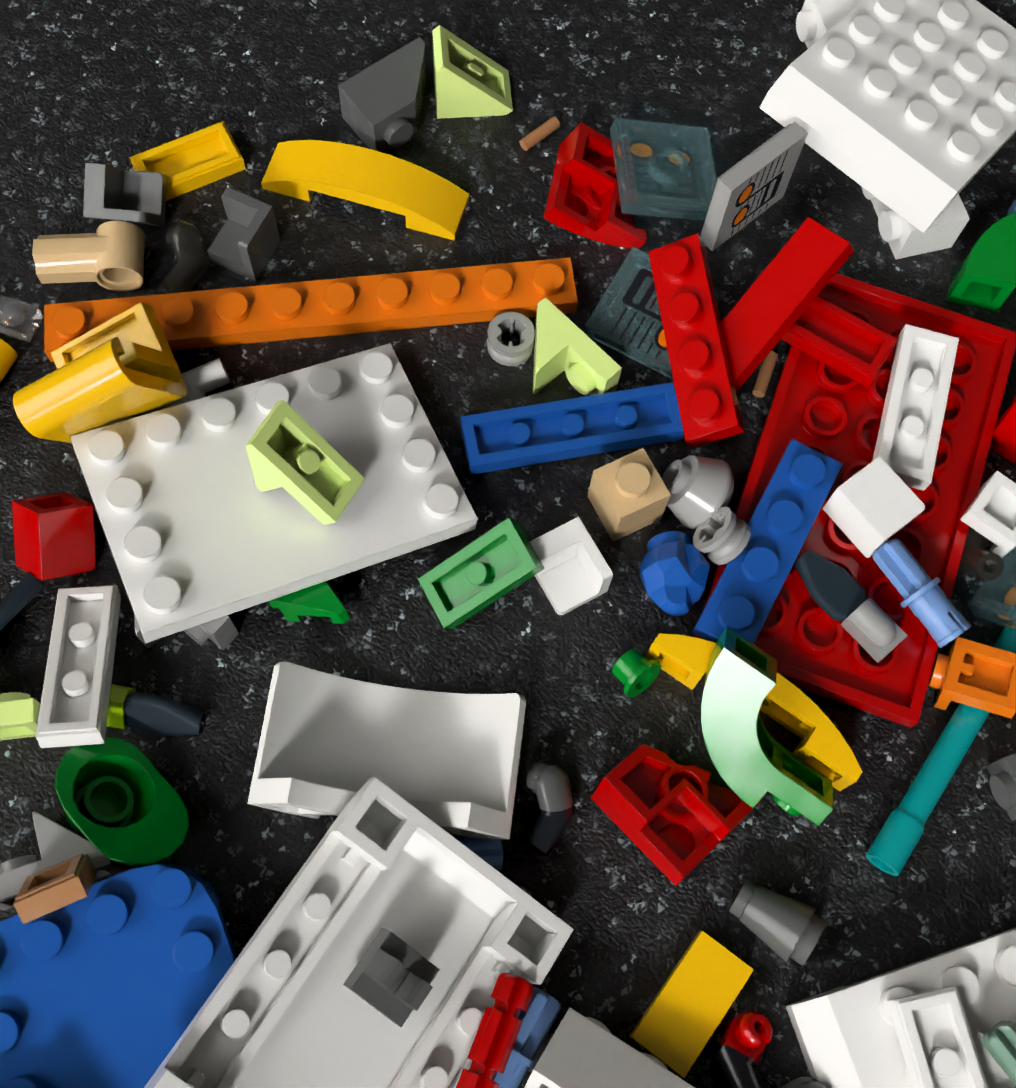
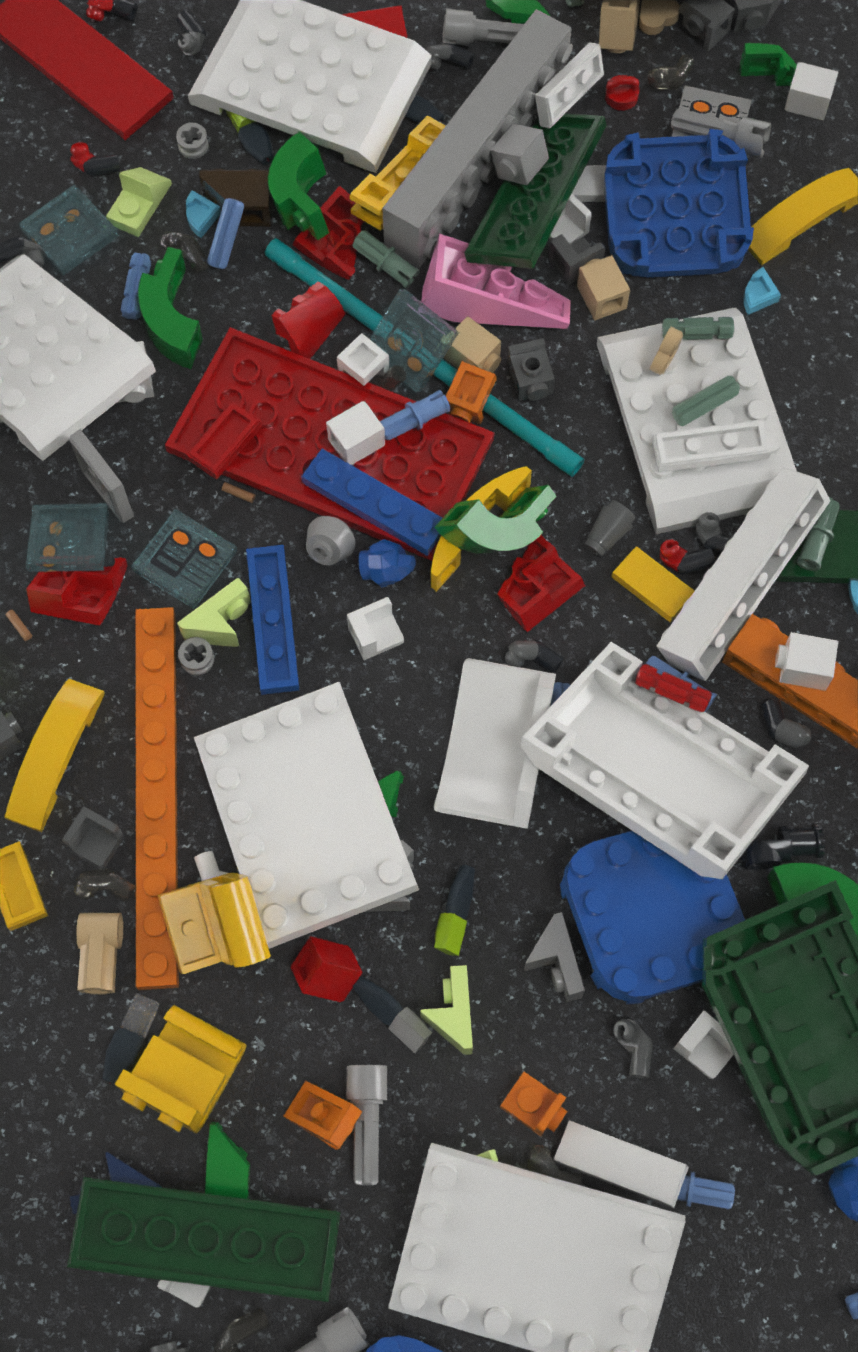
camera: 80 degrees left, 0 degrees up
(55, 887) = (578, 935): medium nougat tile -> none
(79, 667) = (425, 942): white tile -> none
(121, 802) = (520, 910): green piece -> none
(124, 195) = (51, 923): dark grey panel -> none
(295, 457) = (304, 779): yellowish green slope -> none
(392, 977) = (639, 736): dark grey tile -> none
(480, 573) = (379, 681): plate -> none
(628, 494) = (328, 585): tan brick -> none
(635, 672) = (449, 595): green piece -> none
(695, 342) = (217, 529): red plate -> none
(722, 536) = (373, 522): light grey bush -> none
(781, 296) = (209, 483): red tile -> none
(848, 603) = (416, 460): piece -> none
(916, 404) = (283, 398): white plate -> none

